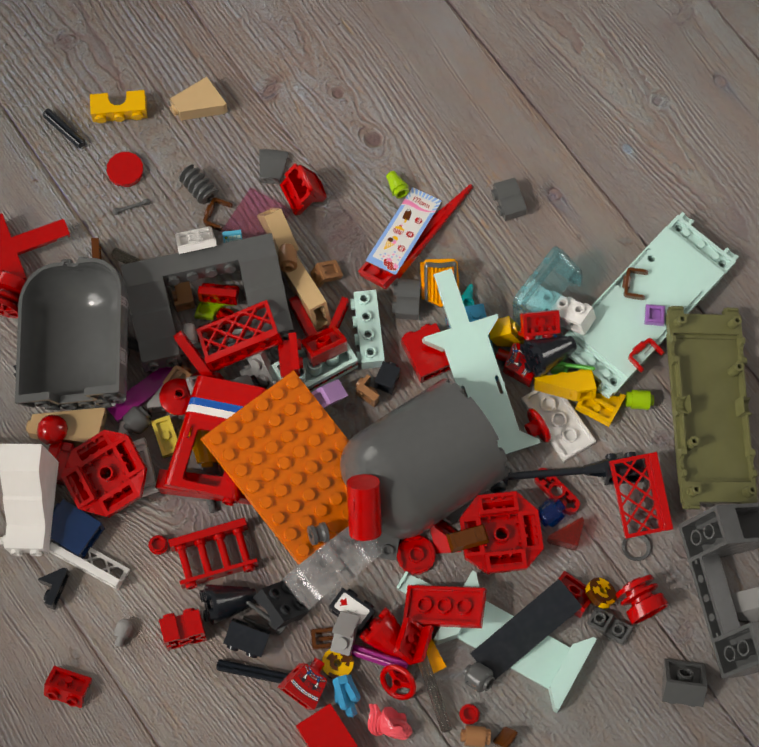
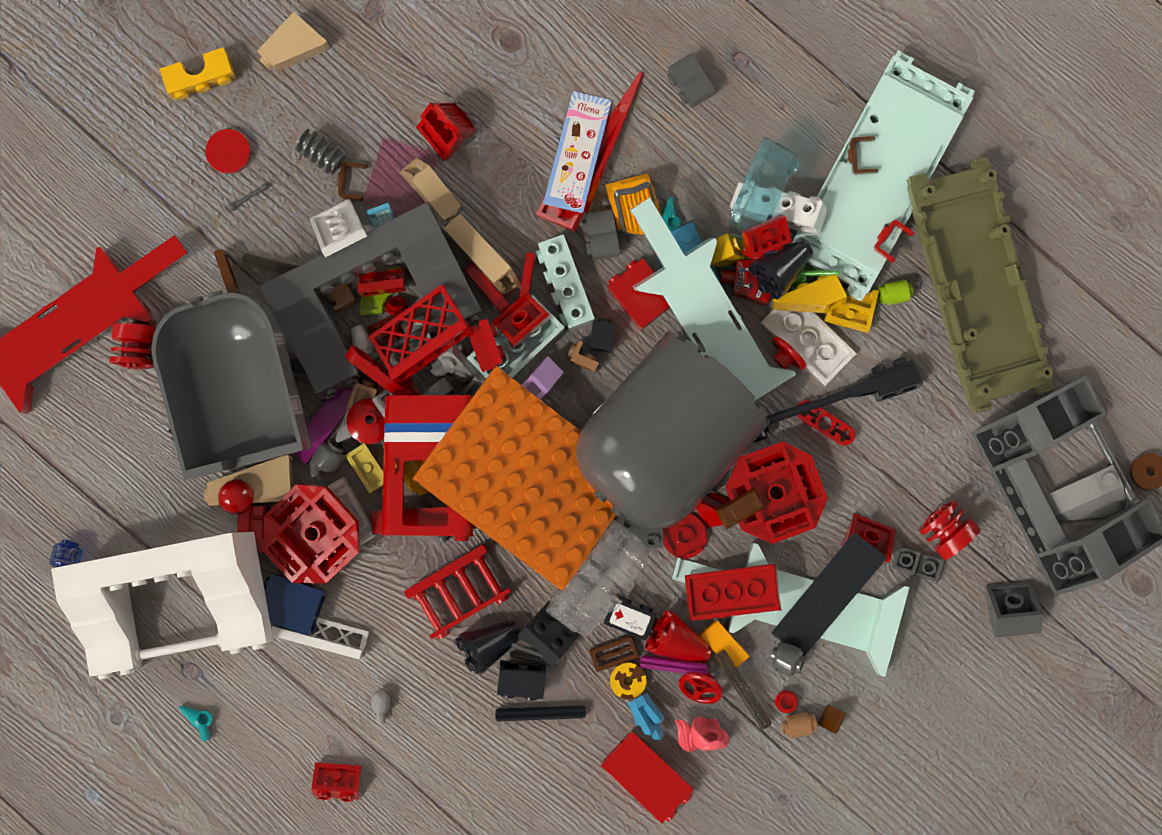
camera: 15 degrees left, 15 degrees up
(57, 582) = (291, 668): black slope -> none
(64, 128) = (140, 117): black axle -> none
(158, 545) = (393, 596): red plate -> none
(182, 629) = (448, 690): red brick -> none
(271, 165) = (400, 104): dark grey piece -> none
(287, 257) = (451, 222): medium nougat brick -> none
(305, 684) = (599, 715): red torso -> none
(318, 533) = (574, 553): dark grey wheel -> none
(326, 272) = (499, 225): medium nougat bracket -> none
(345, 633) = (629, 649): light grey slope -> none
(364, 507) = (621, 518): red piece -> none
(397, 185) = (555, 94): lime cone -> none
(413, 641) = (708, 643): red bracket -> none
(551, 512) = (826, 451): clear blue head -> none
(568, 536) = (851, 473): clear red slope -> none
(600, 592) = (901, 531): piece -> none
(639, 558) = (941, 465): dark grey piece -> none
(654, 315) = (893, 189): medium lavender tile -> none
(657, 490) = (942, 404): red fence -> none

